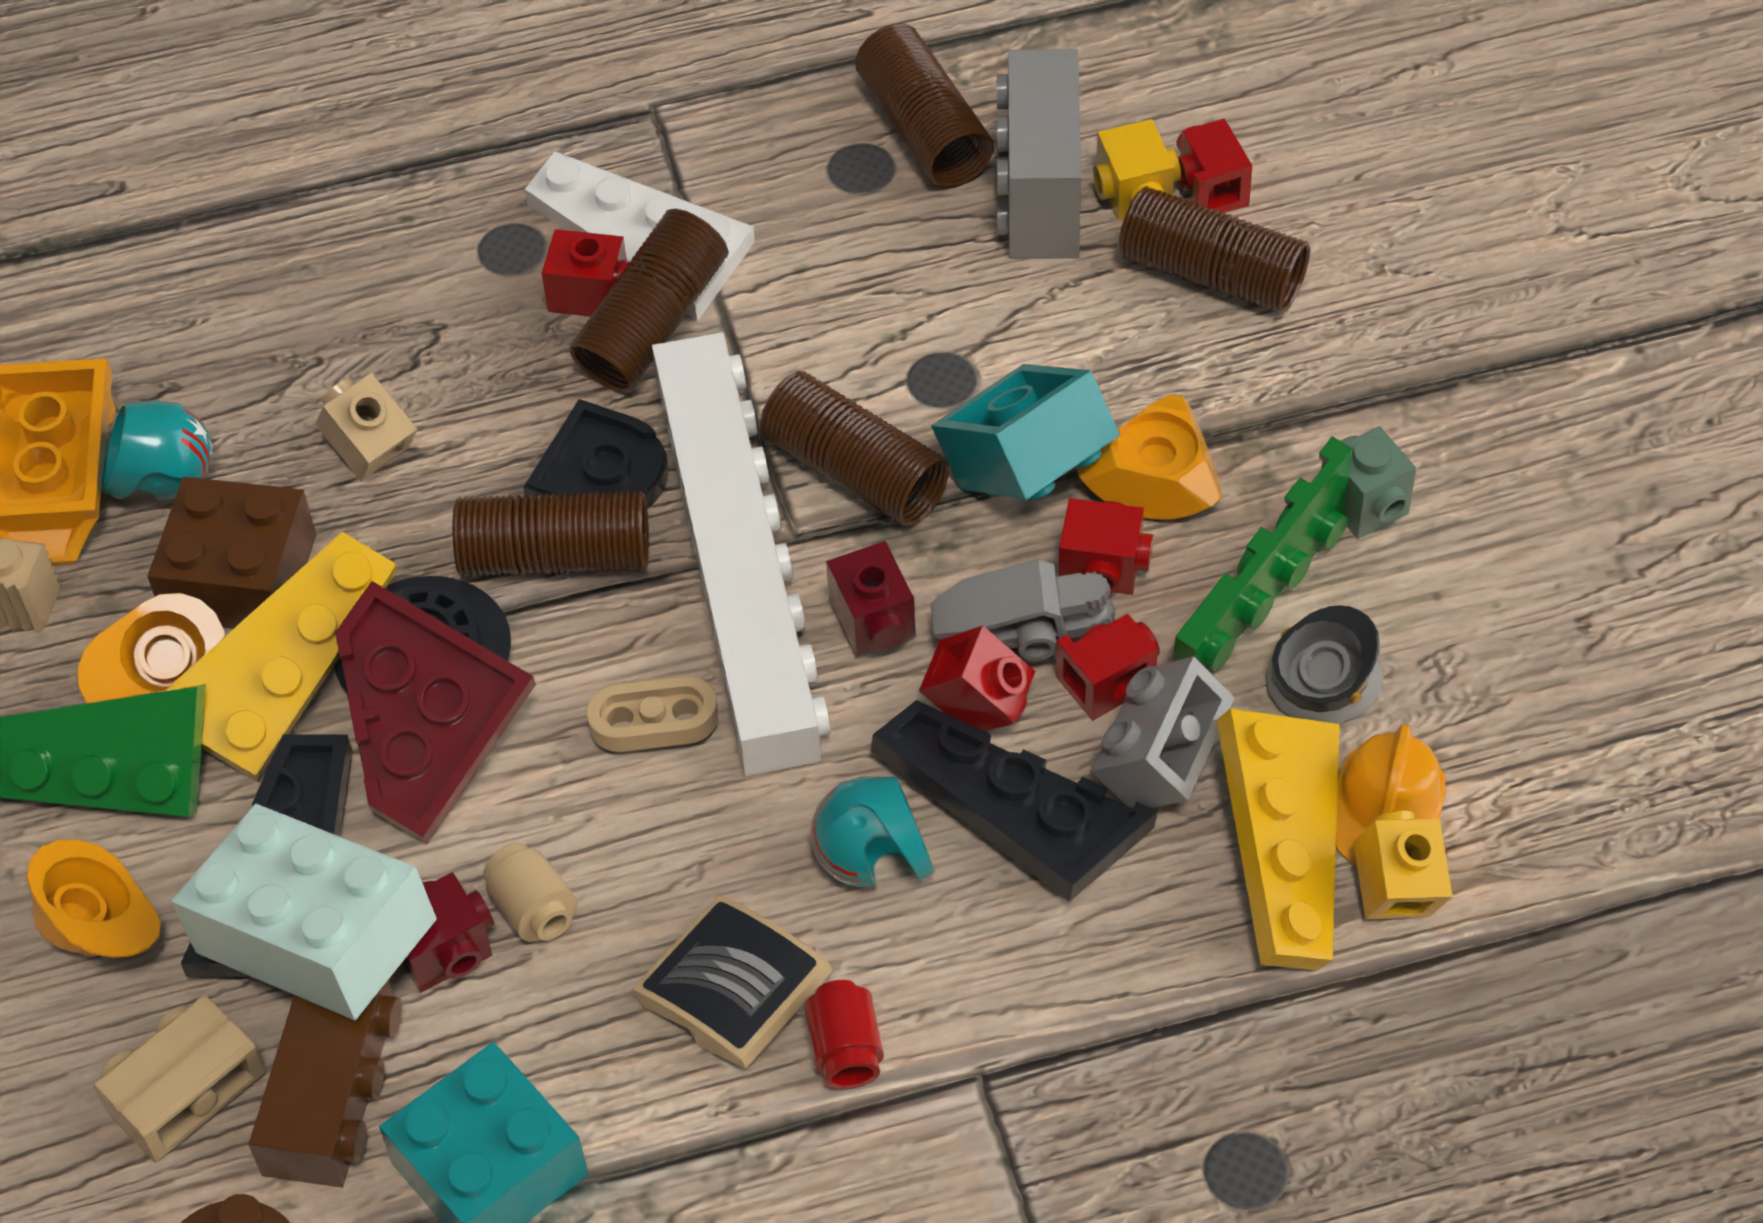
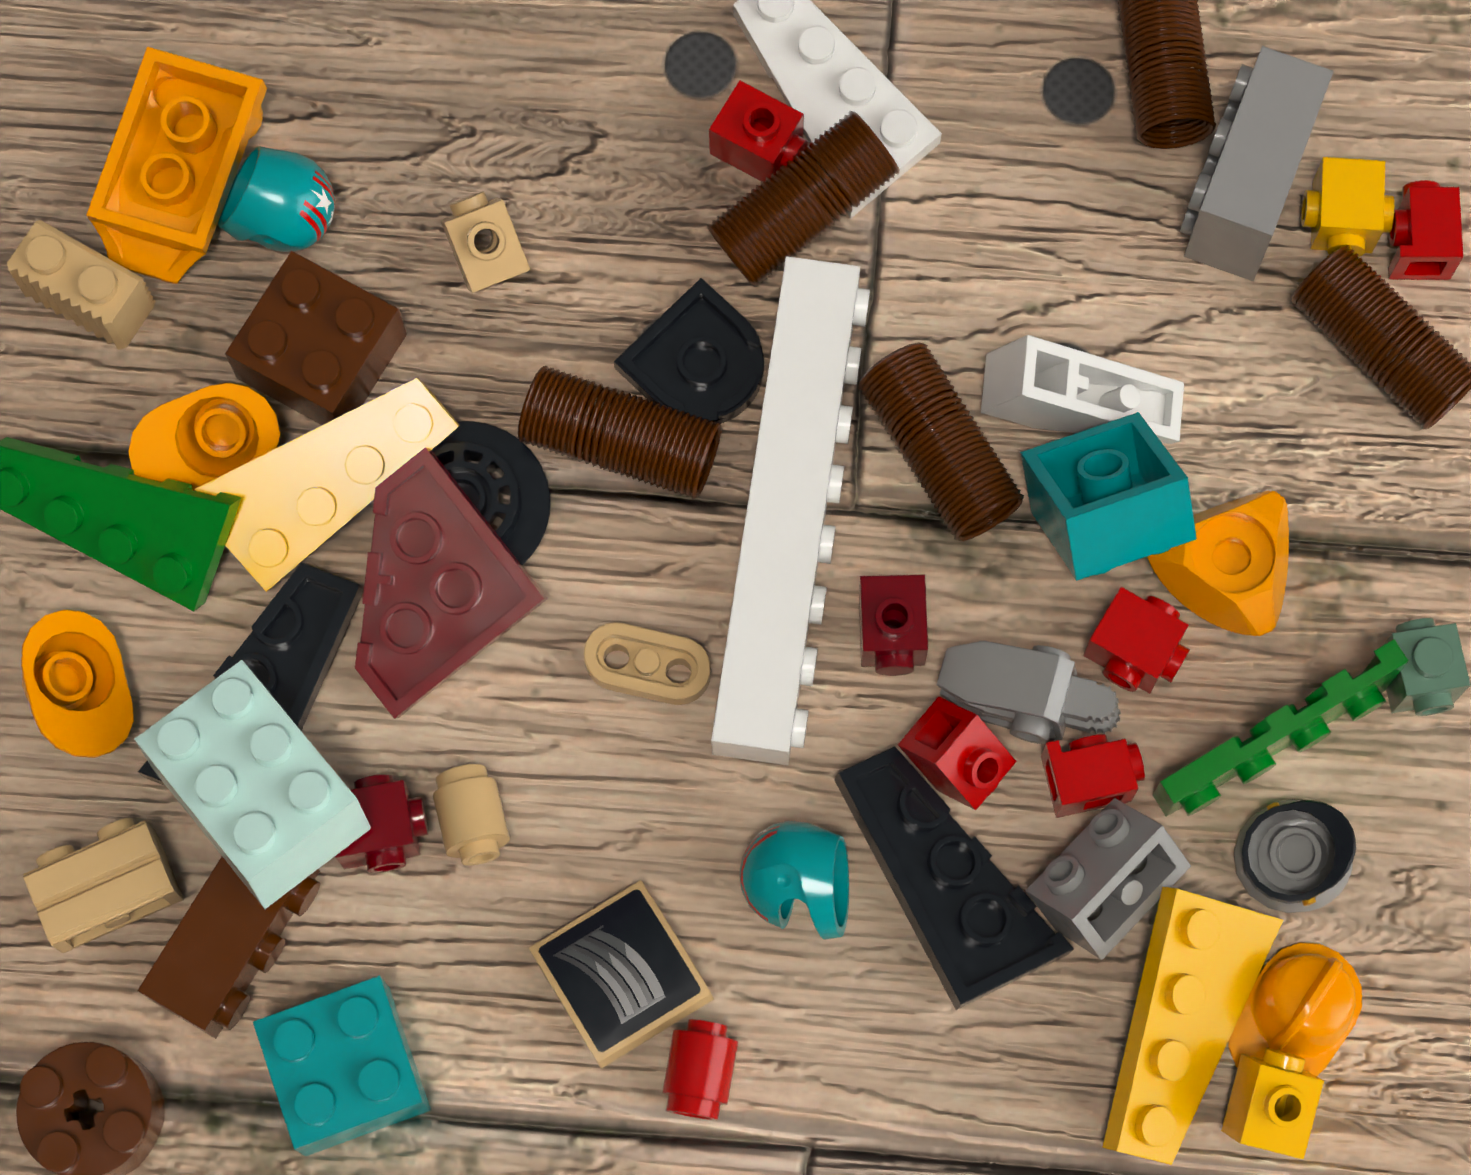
camera: 20 degrees right, 20 degrees up
(934, 371) = (1075, 390): none -> white slope

